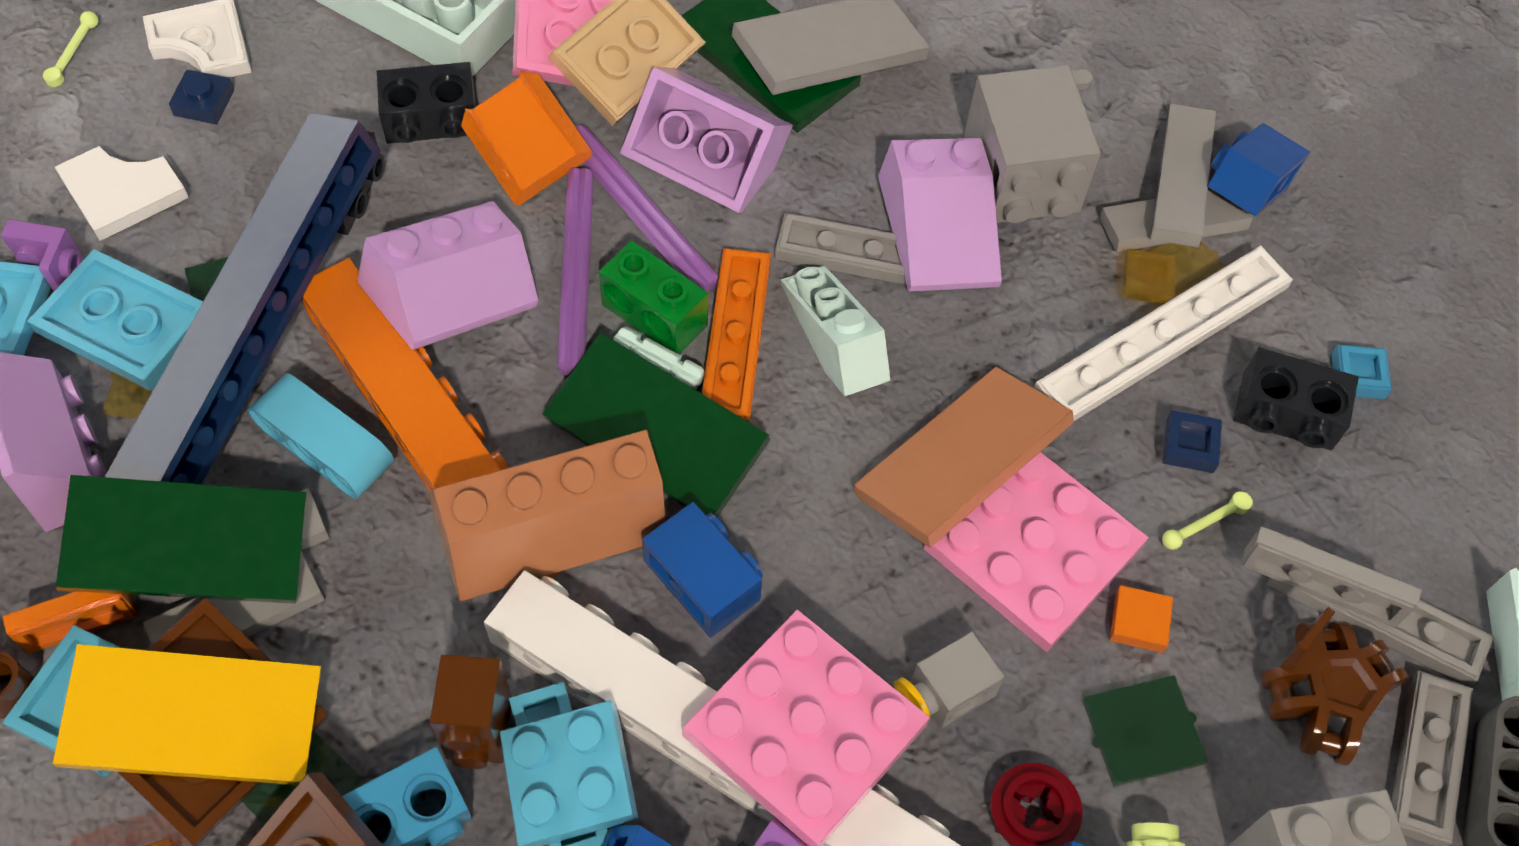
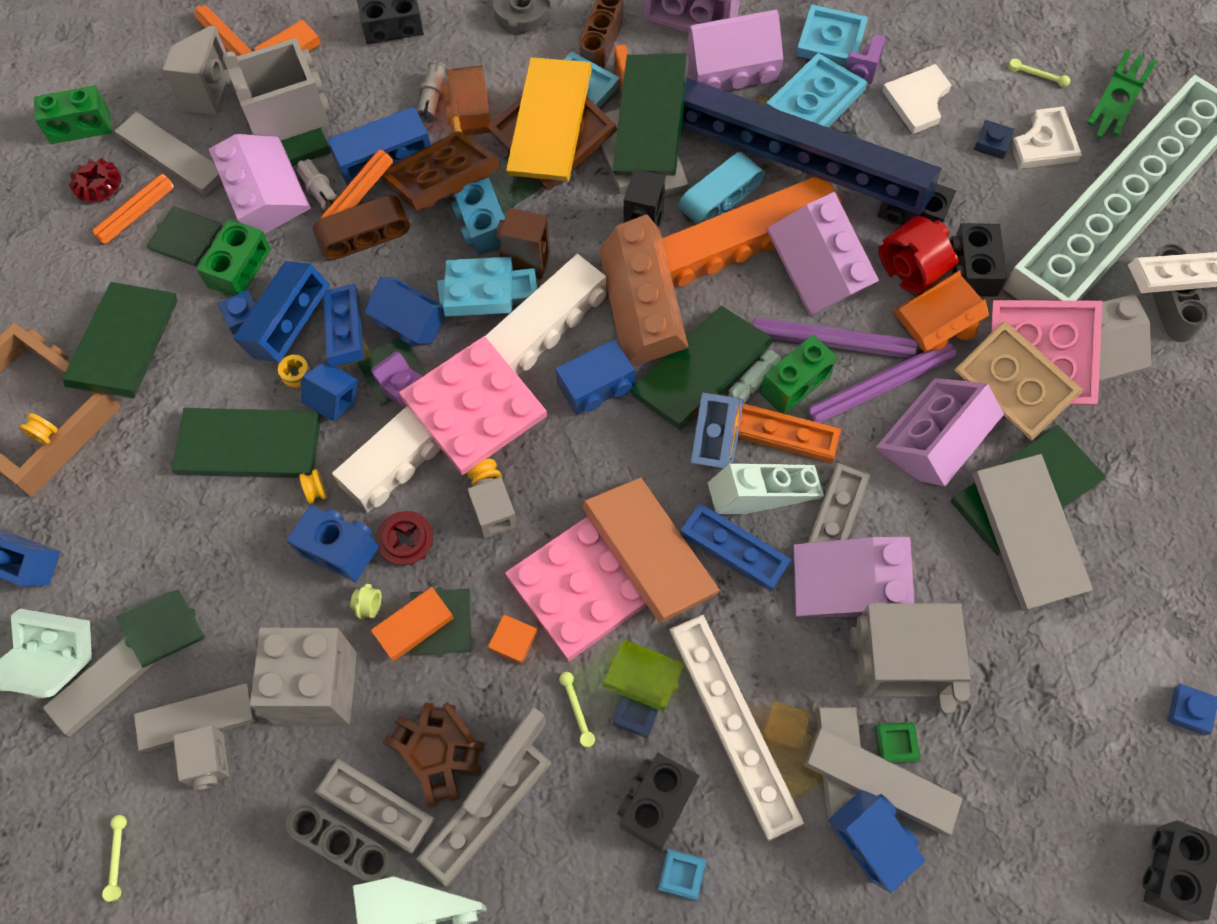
camera: 105 degrees right, 5 degrees up
(379, 531) = (644, 196): none -> black brick
(436, 160) = (918, 253): none -> red brick
(775, 377) = (717, 430): none -> medium blue brick
(930, 355) = (735, 547): none -> blue plate
(1126, 170) = (897, 742): none -> green tile
(1142, 439) = (643, 675): none -> clear neon green piece
(1169, 761) = (412, 624): none -> orange tile

